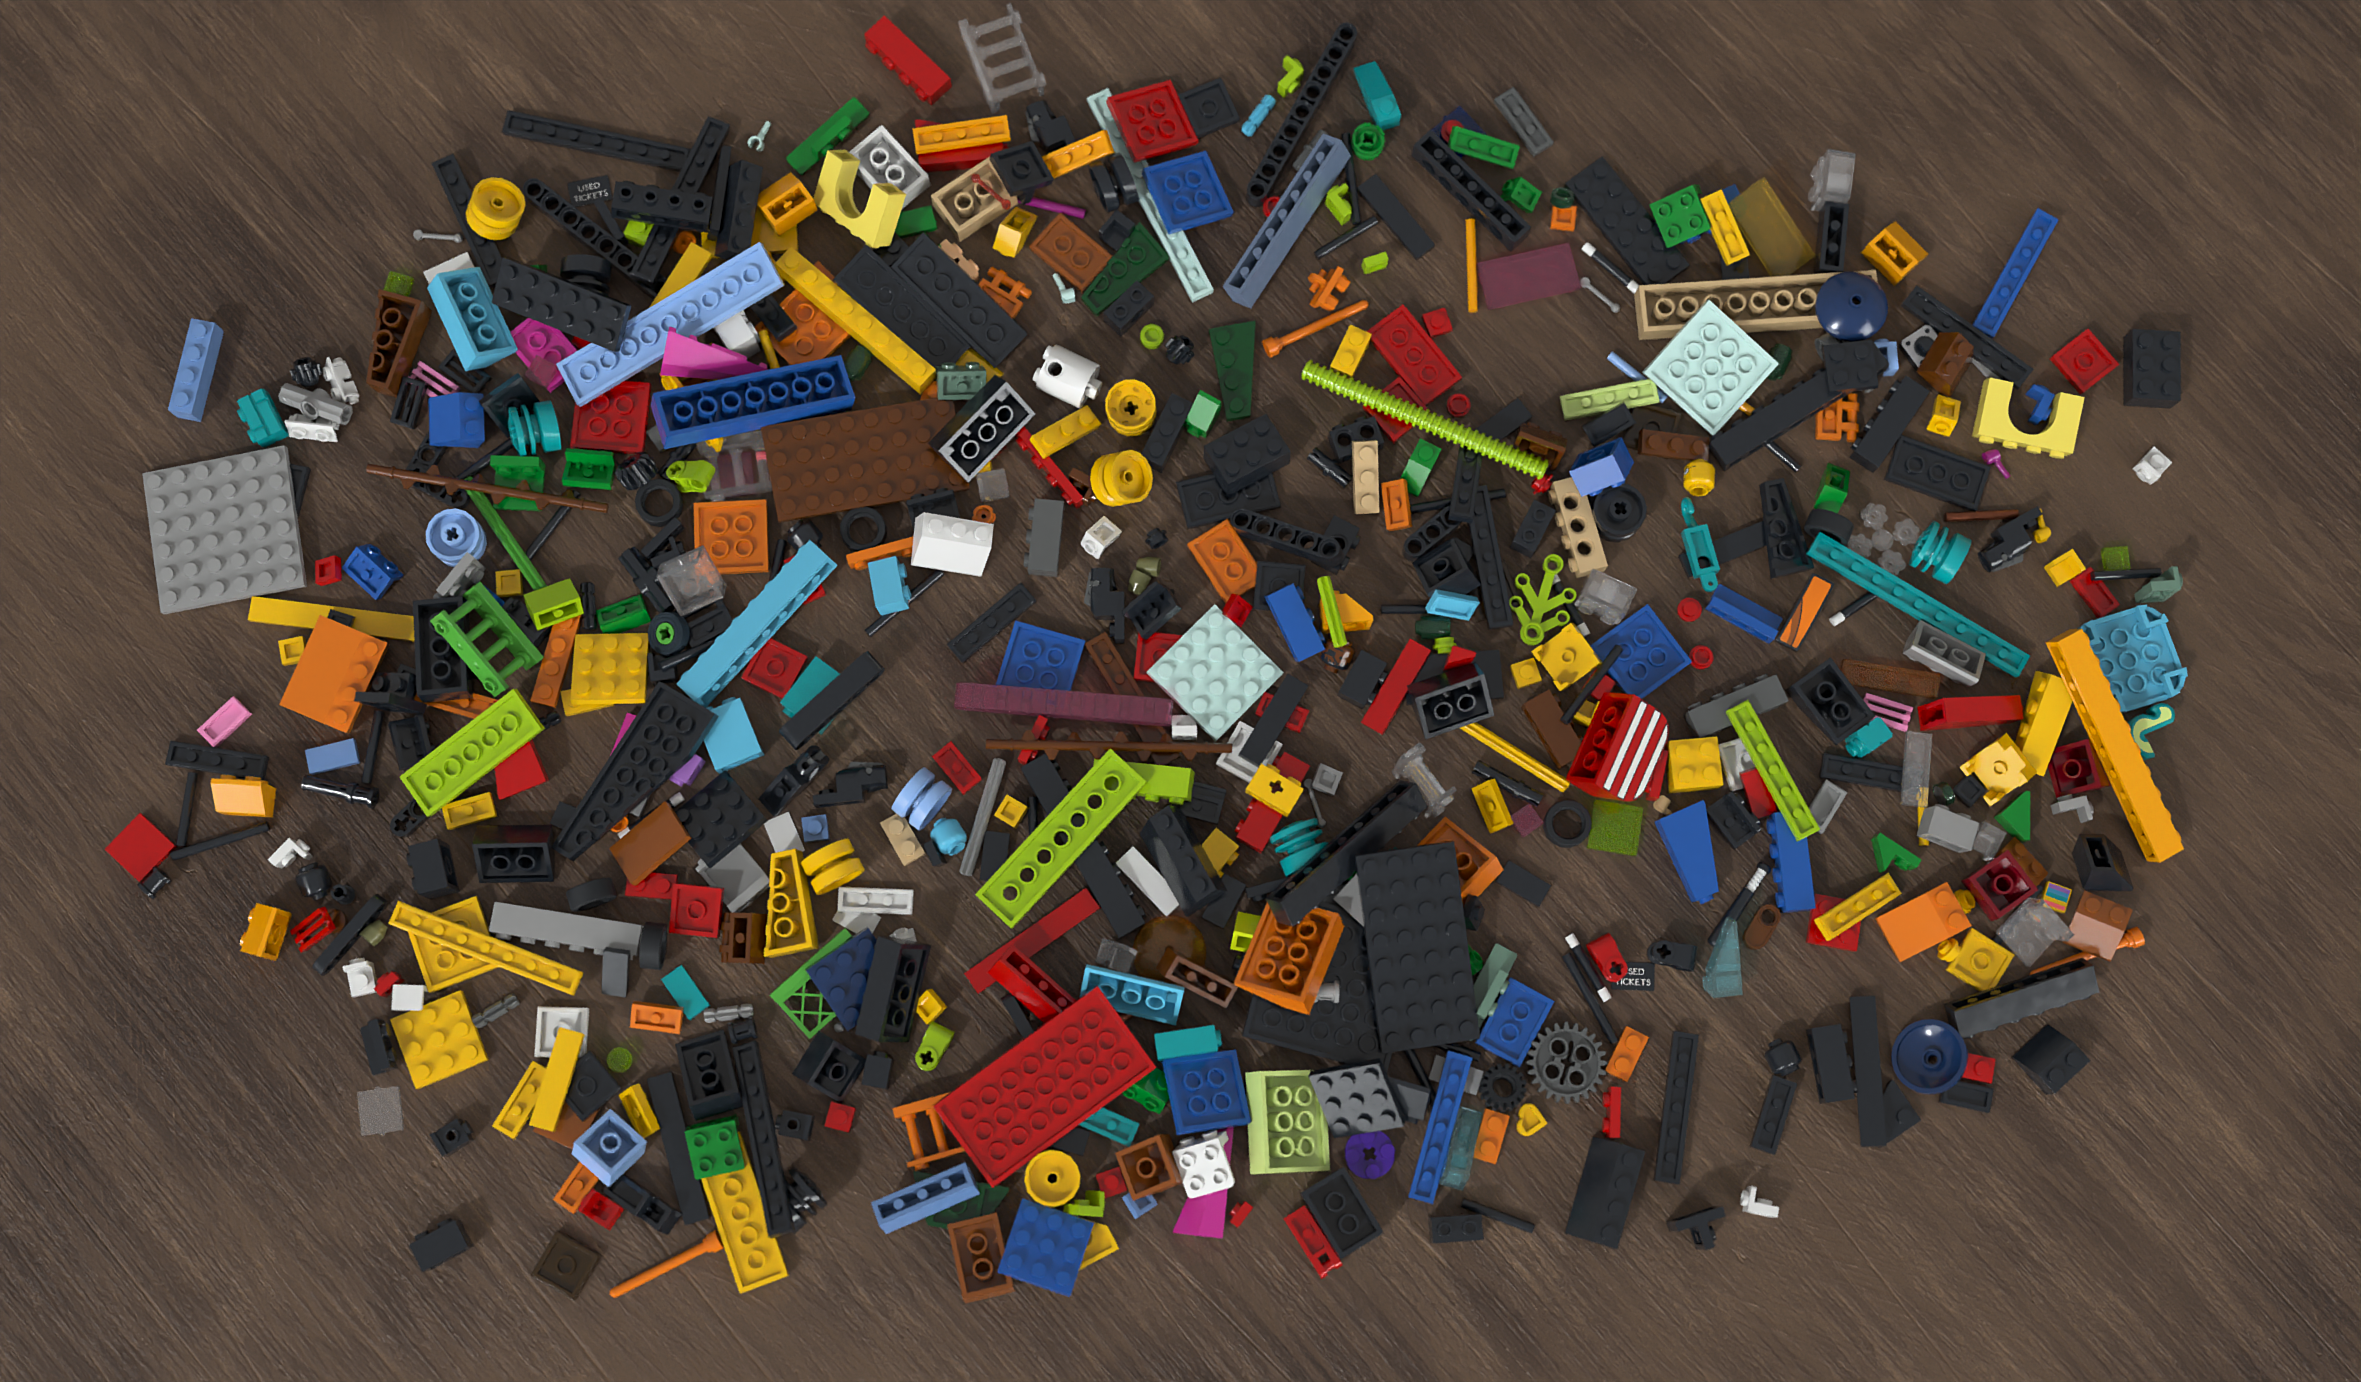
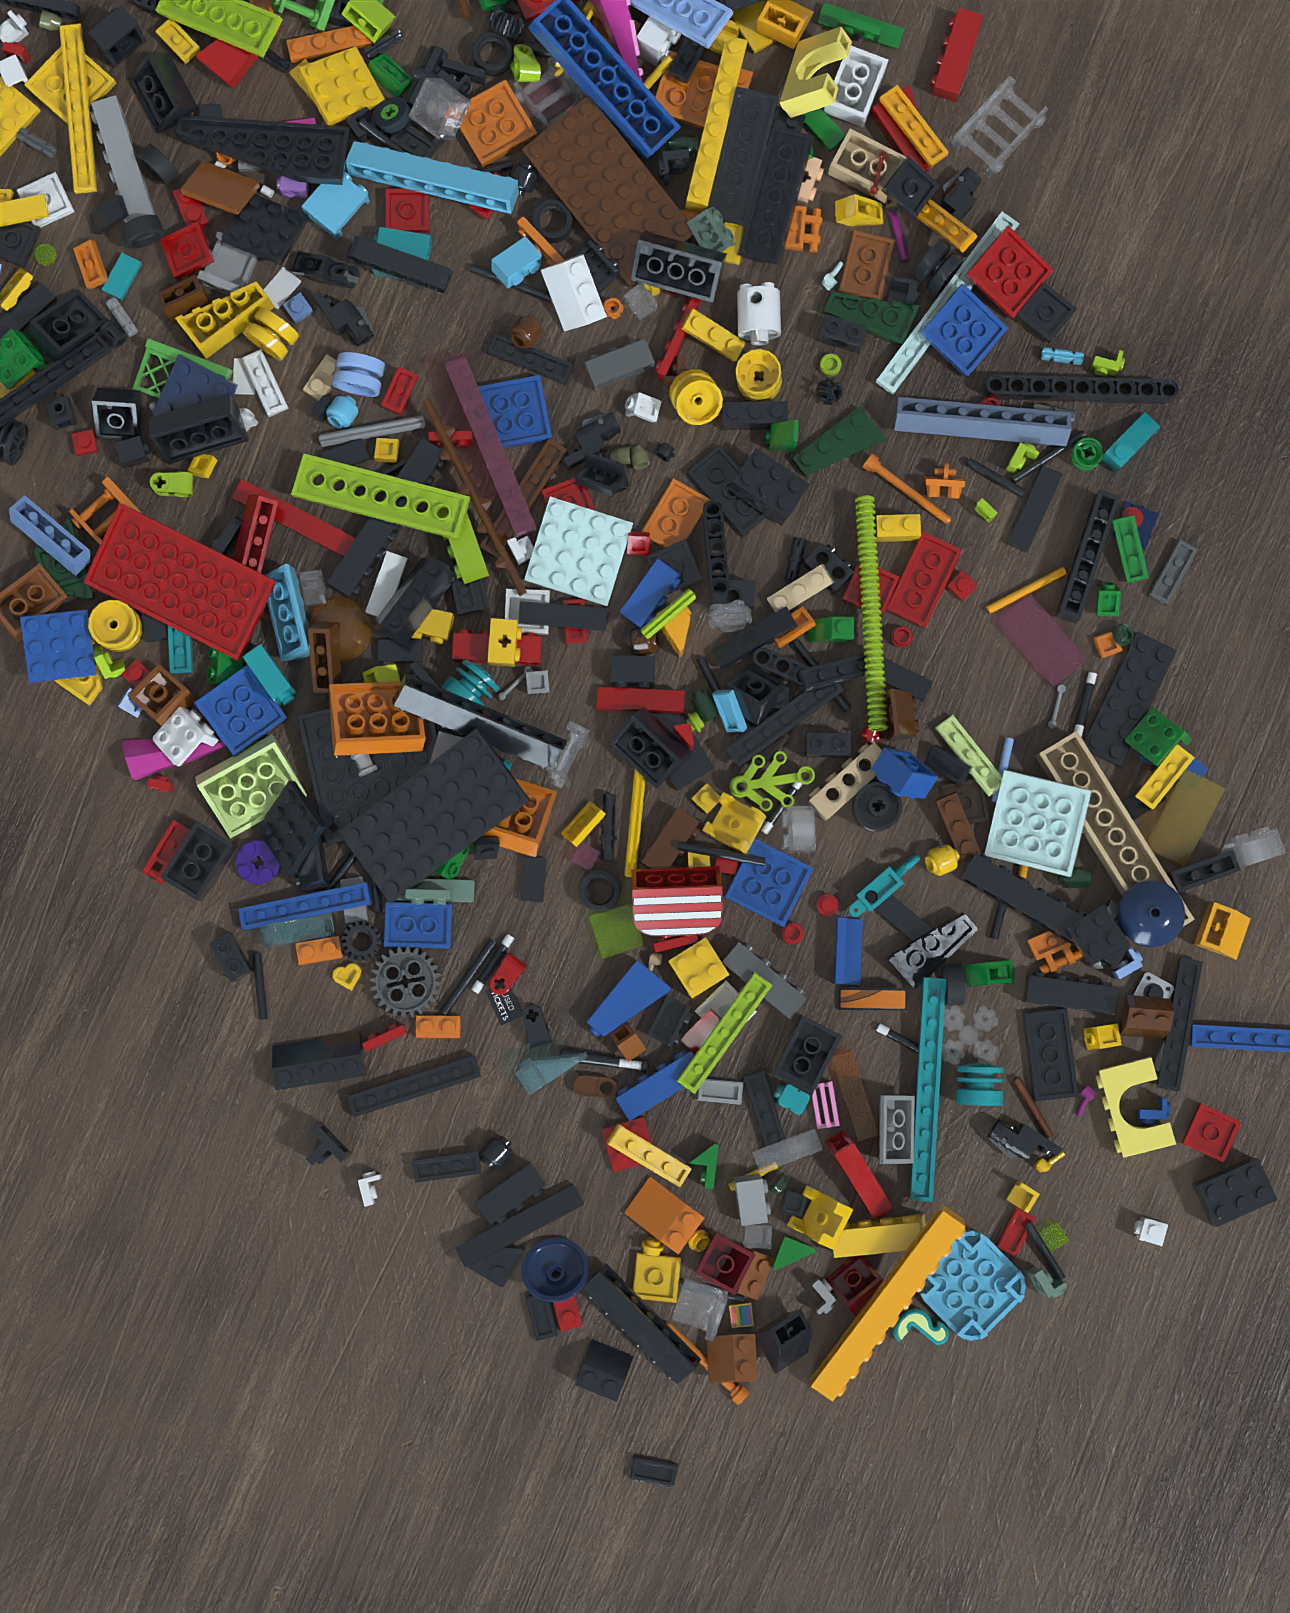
camera: 65 degrees right, 5 degrees up
(871, 383) = (673, 161): none -> black bracket
(964, 611) = (526, 332): none -> reddish brown head
(1358, 557) = (729, 616): none -> clear plate
(1390, 545) = (754, 638): none -> black tile
(1734, 870) = (627, 1041): none -> dark orange brick
(2171, 1061) = (653, 1471): none -> black tile

